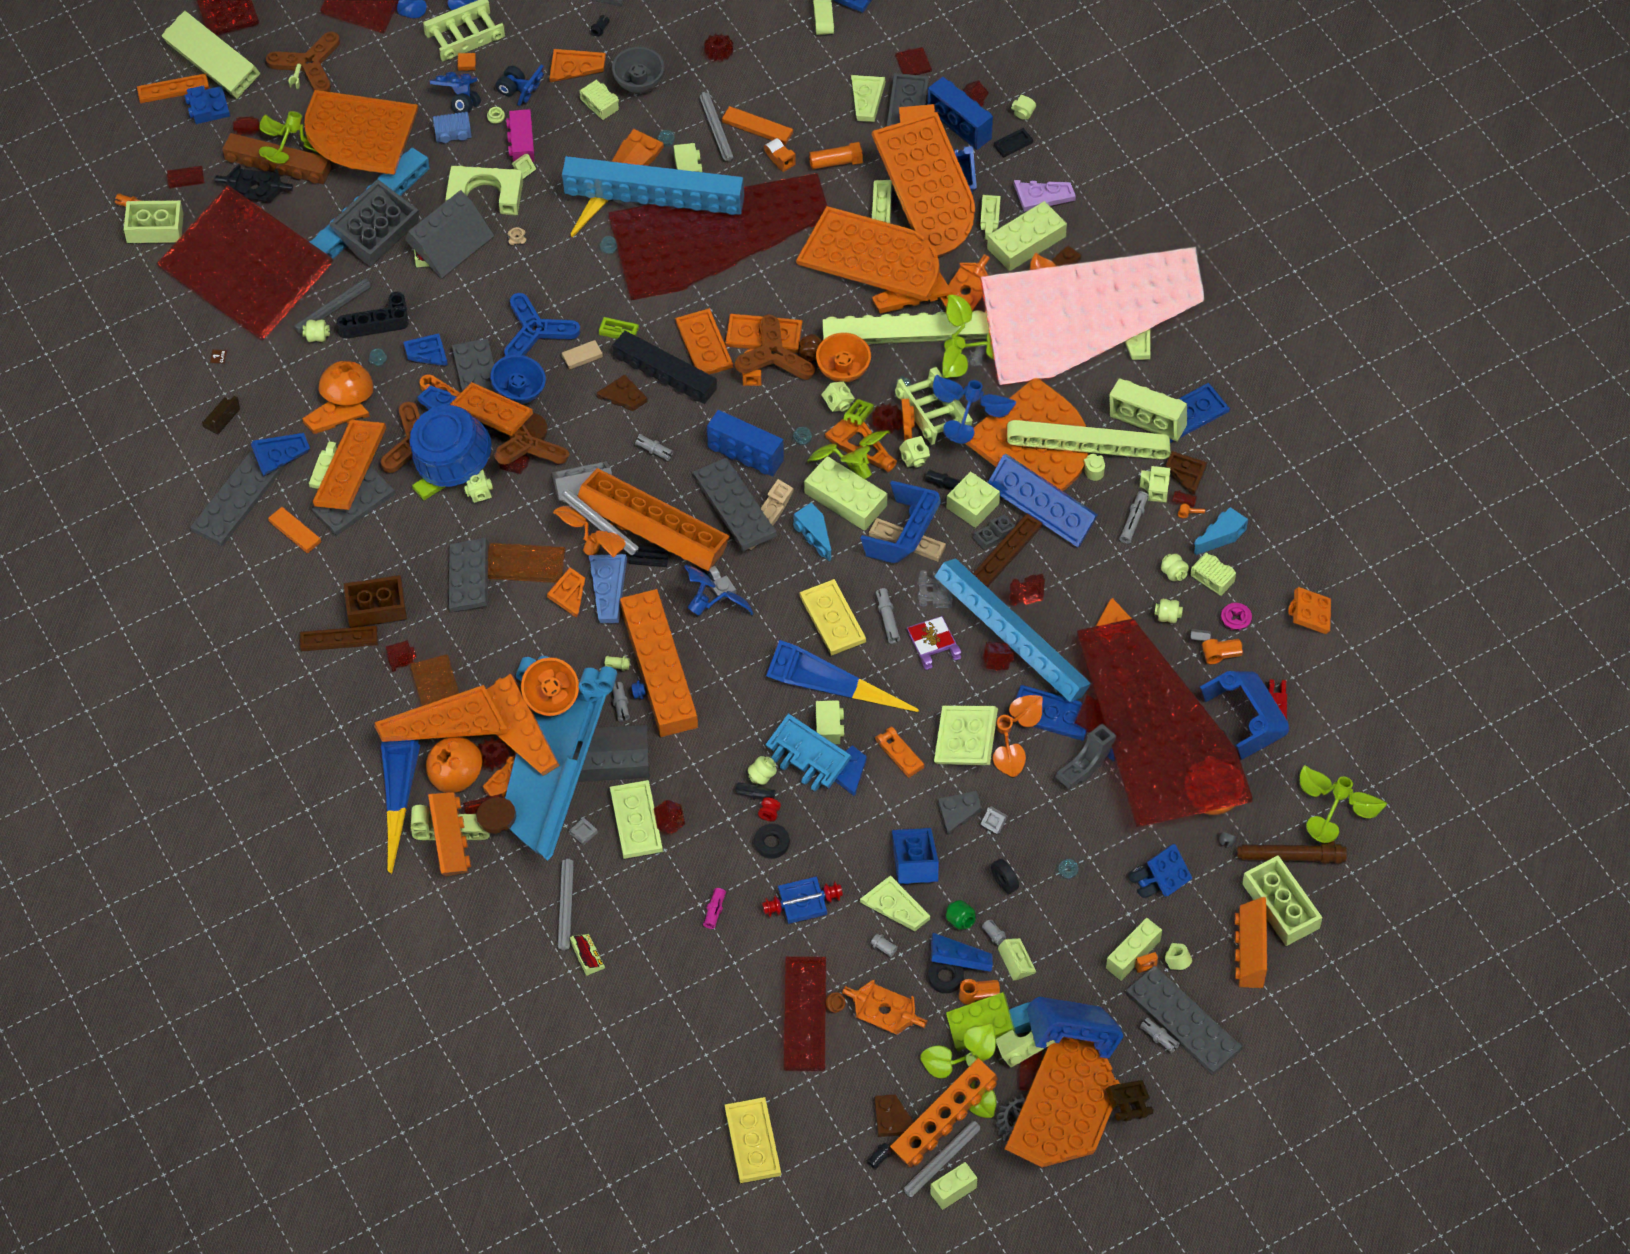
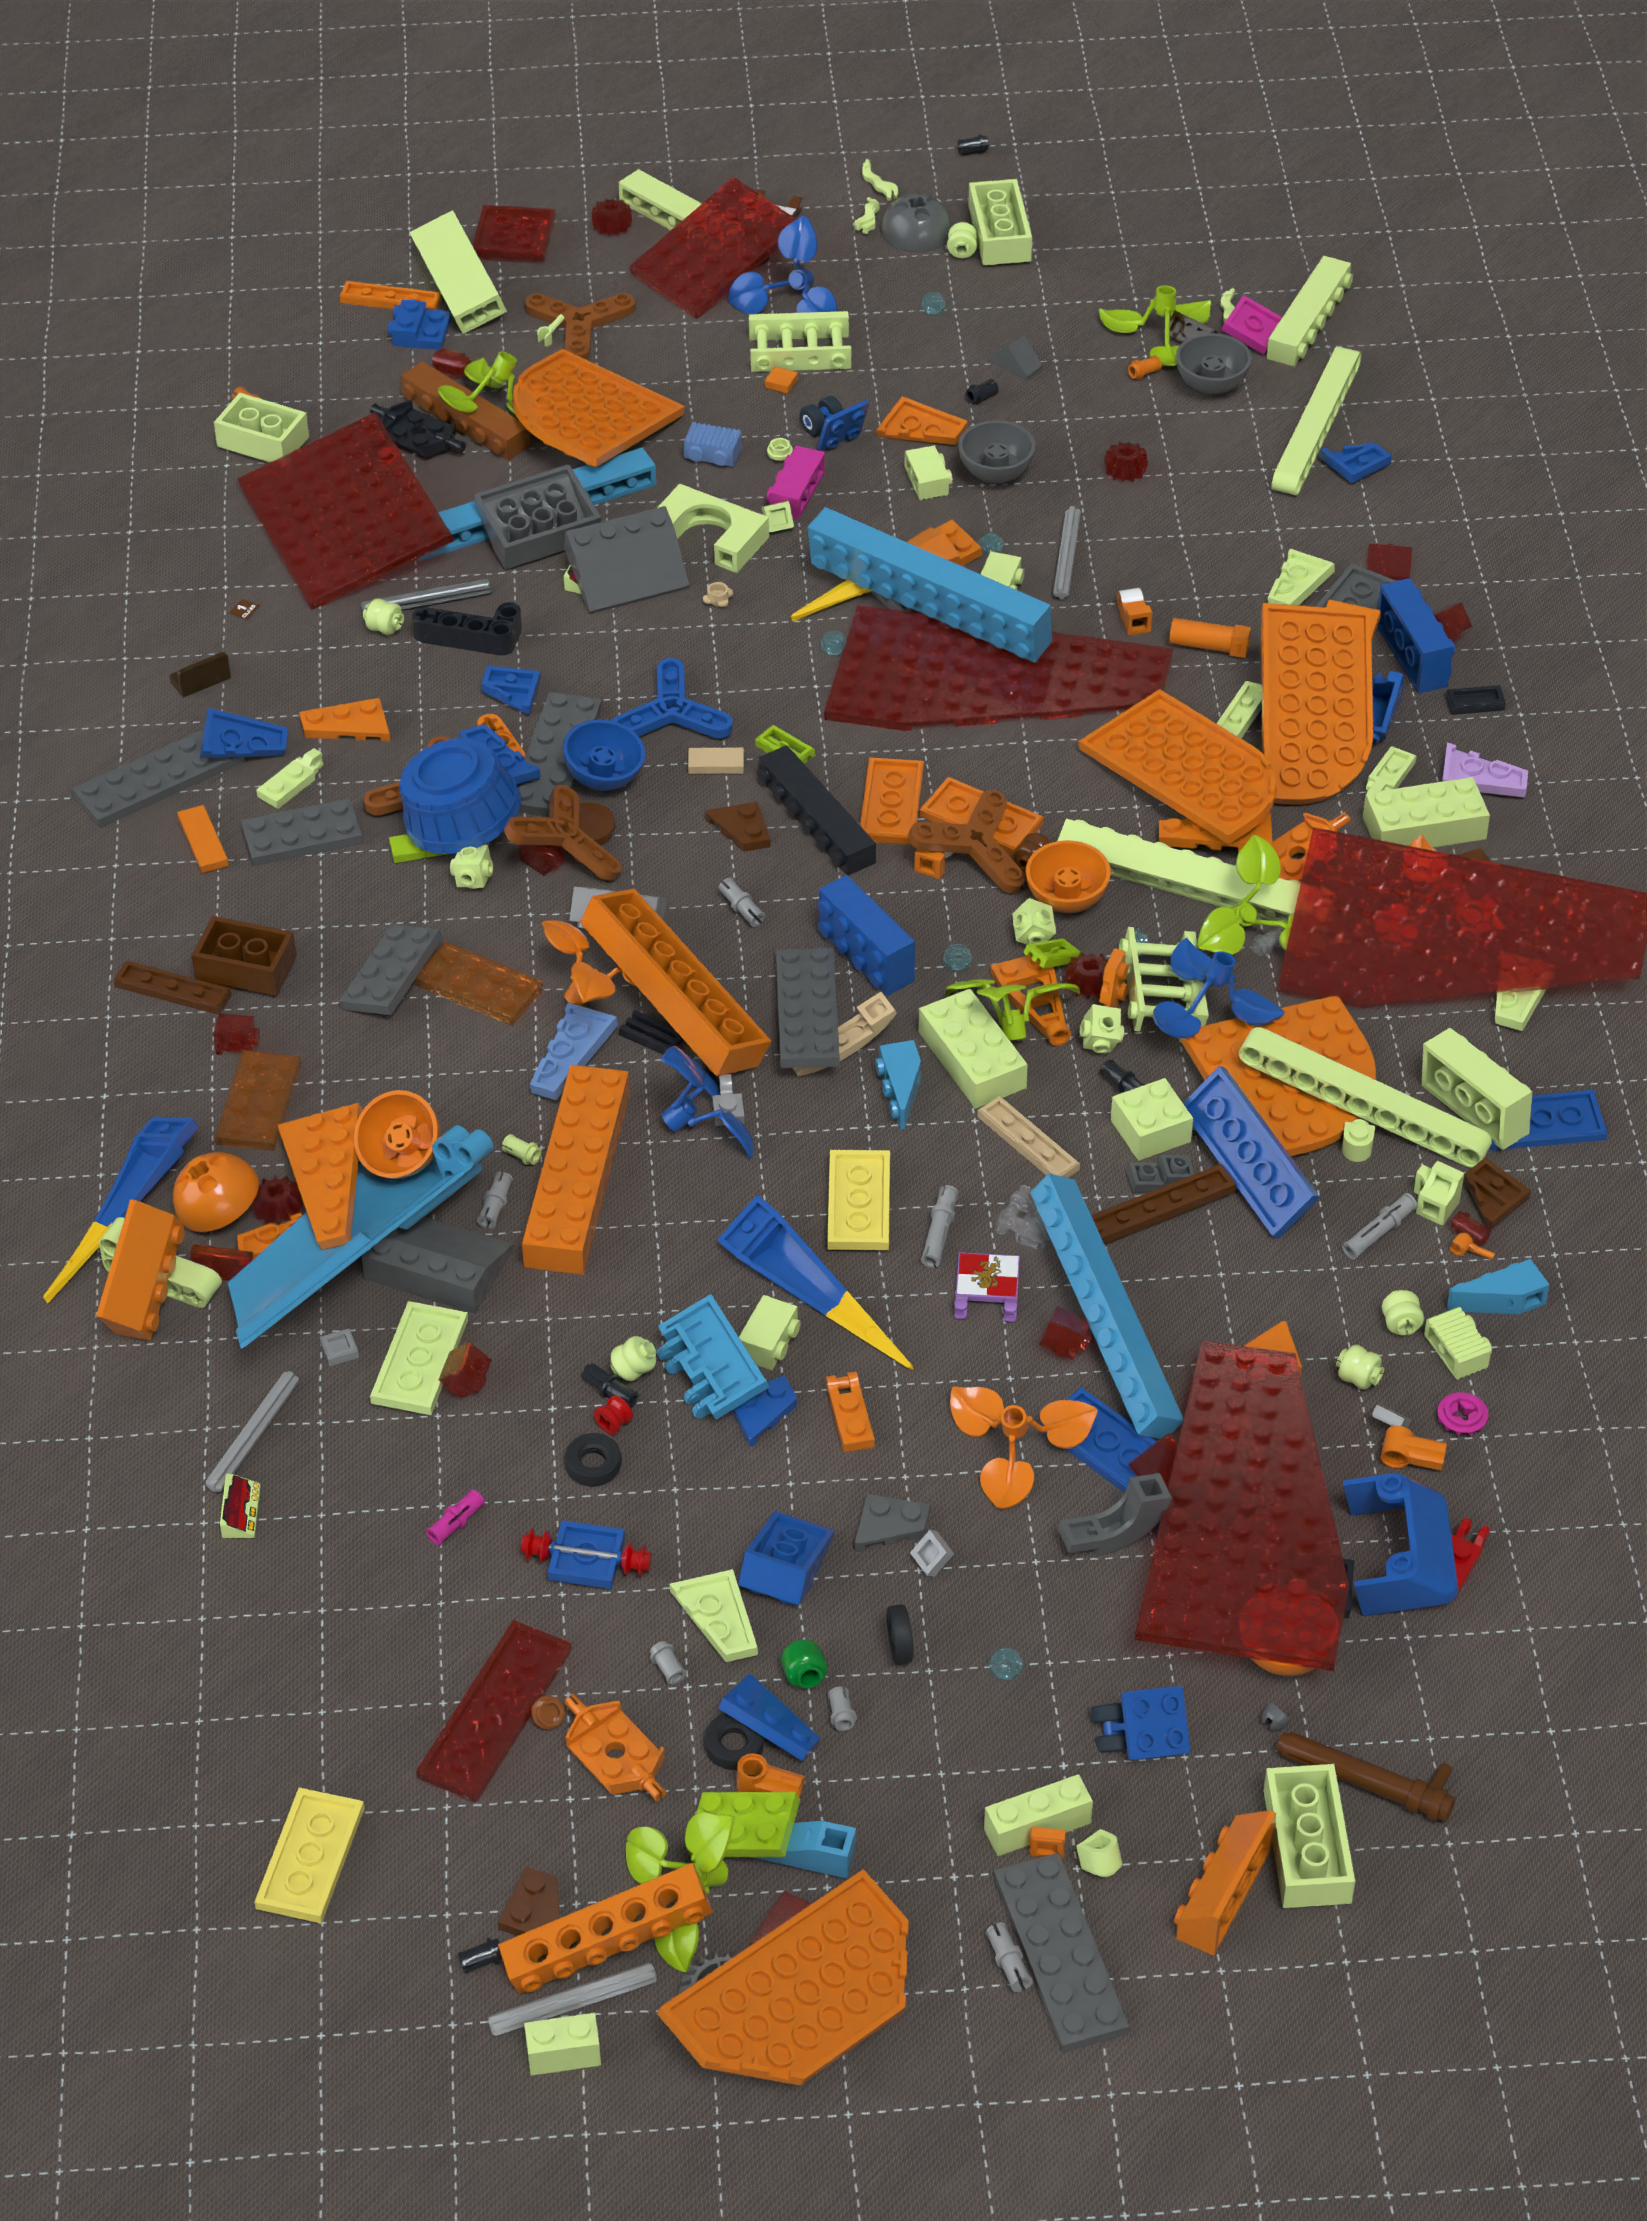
camera: 25 degrees right, 10 degrees down
(185, 176) = (339, 397): clear red tile -> none
(345, 383) = (379, 687): orange piece -> none
(349, 464) = (319, 783): orange plate -> none
(377, 353) = (444, 674): clear light blue plate -> none
(454, 716) = (250, 1128): orange wing -> none
(465, 97) = (749, 418): plate -> none
(493, 408) = (545, 776): orange tile -> none
(496, 815) = (224, 1274): reddish brown tile -> none
(568, 591) = (512, 1037): orange wing -> none
(596, 519) = (598, 956): light grey axle -> none
(638, 690) = (526, 1192): blue plate -> none
(757, 125) = (1124, 568): orange tile -> none
(922, 510) = (1066, 1096): blue windscreen -> none
(966, 735) = (952, 1418): yellowish green plate -> none
(1016, 958) = (855, 1760): yellowish green slope -> none
(1017, 1049) = (821, 1874): yellowish green arch -> none
(1023, 107) = (1513, 659): yellowish green plate -> none
(1029, 591) = (1168, 1258): clear red plate -> none
(1056, 1019) = (875, 1873): blue windscreen -> none
(1127, 1094) = (907, 2021): dark brown plate -> none
(1311, 610) = (1583, 1445): orange plate -> none
(1316, 783) = (1458, 1689): lime plant -> none

